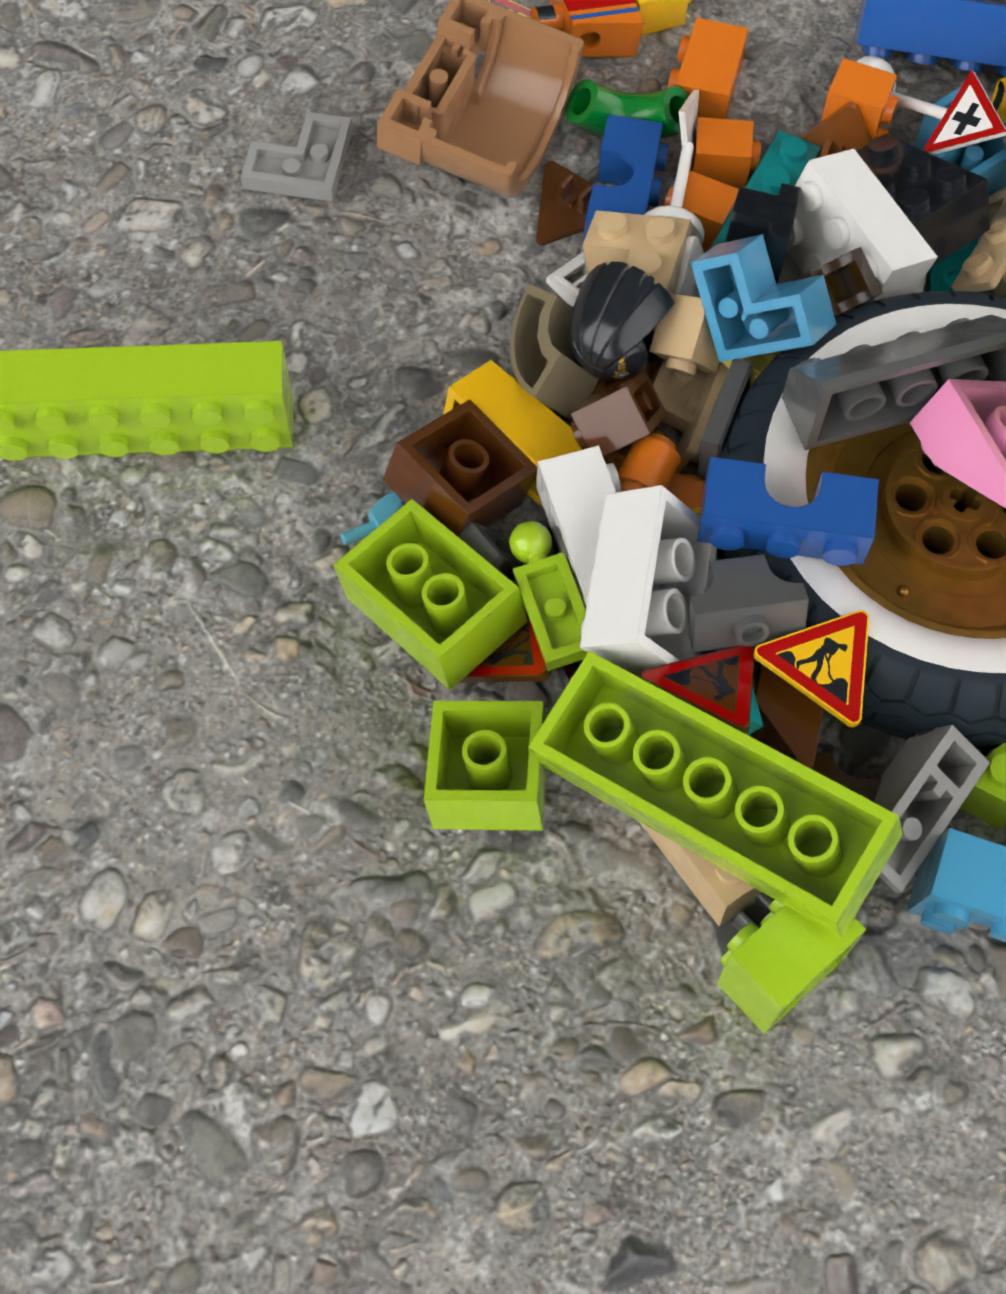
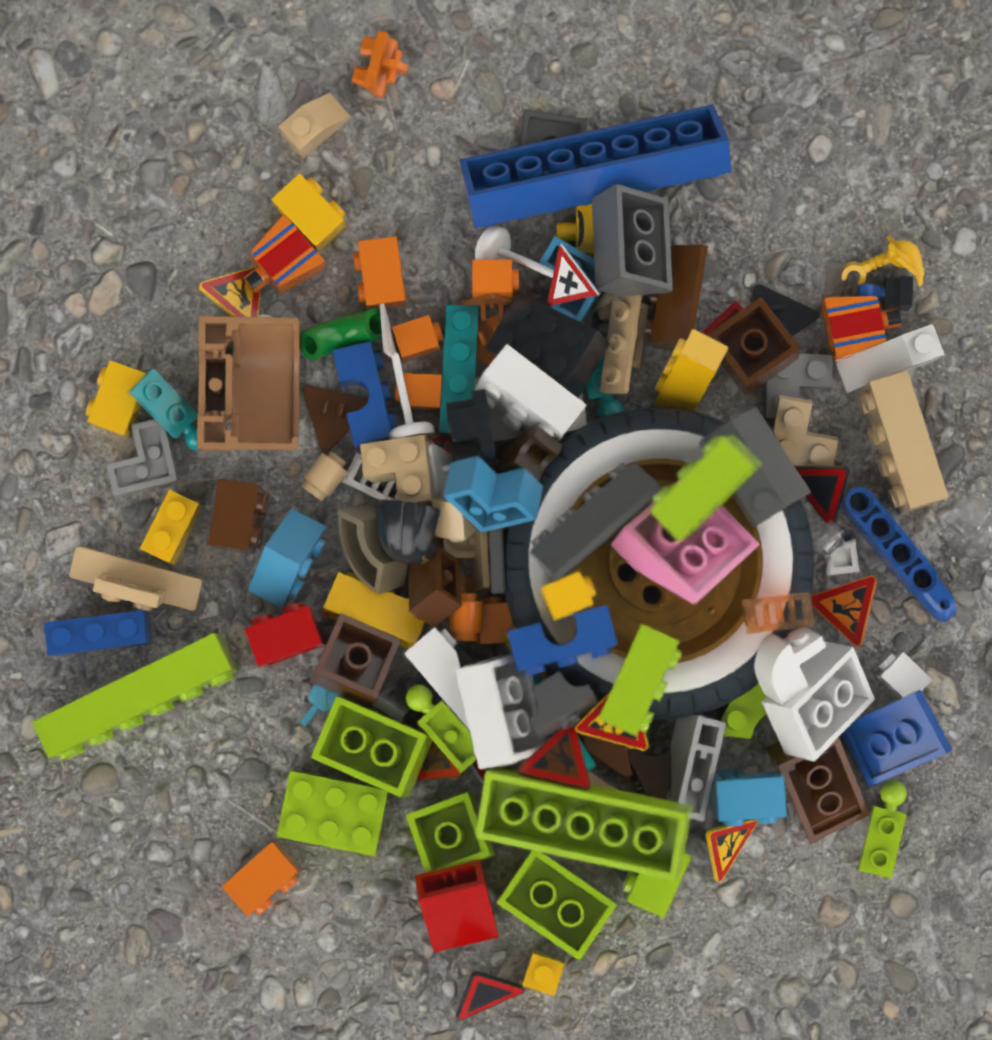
camera: 20 degrees left, 20 degrees up
(94, 305) = (98, 633): none -> blue arch
(176, 716) = (261, 878): none -> orange brick
(215, 282) = (134, 581): none -> tan bracket
(295, 237) = (171, 527): none -> yellow brick
(310, 78) = (113, 406): none -> yellow brick
(328, 666) = (333, 813): none -> lime brick
(361, 104) = (166, 406): none -> teal plate
(373, 402) = (285, 635): none -> red brick
(387, 245) = (238, 516): none -> reddish brown brick
(424, 315) = (287, 558): none -> dark azure brick
(431, 1030) = (485, 992): none -> piece
(448, 864) = (456, 906): none -> red brick
(527, 256) = (324, 476): none -> tan brick
(539, 1036) = (543, 972): none -> yellow brick
(609, 932) = (556, 903): none -> lime brick
(821, 436) = (568, 595): none -> yellow brick
(886, 613) = (640, 681): none -> lime brick
(918, 965) = (725, 845): none -> piece

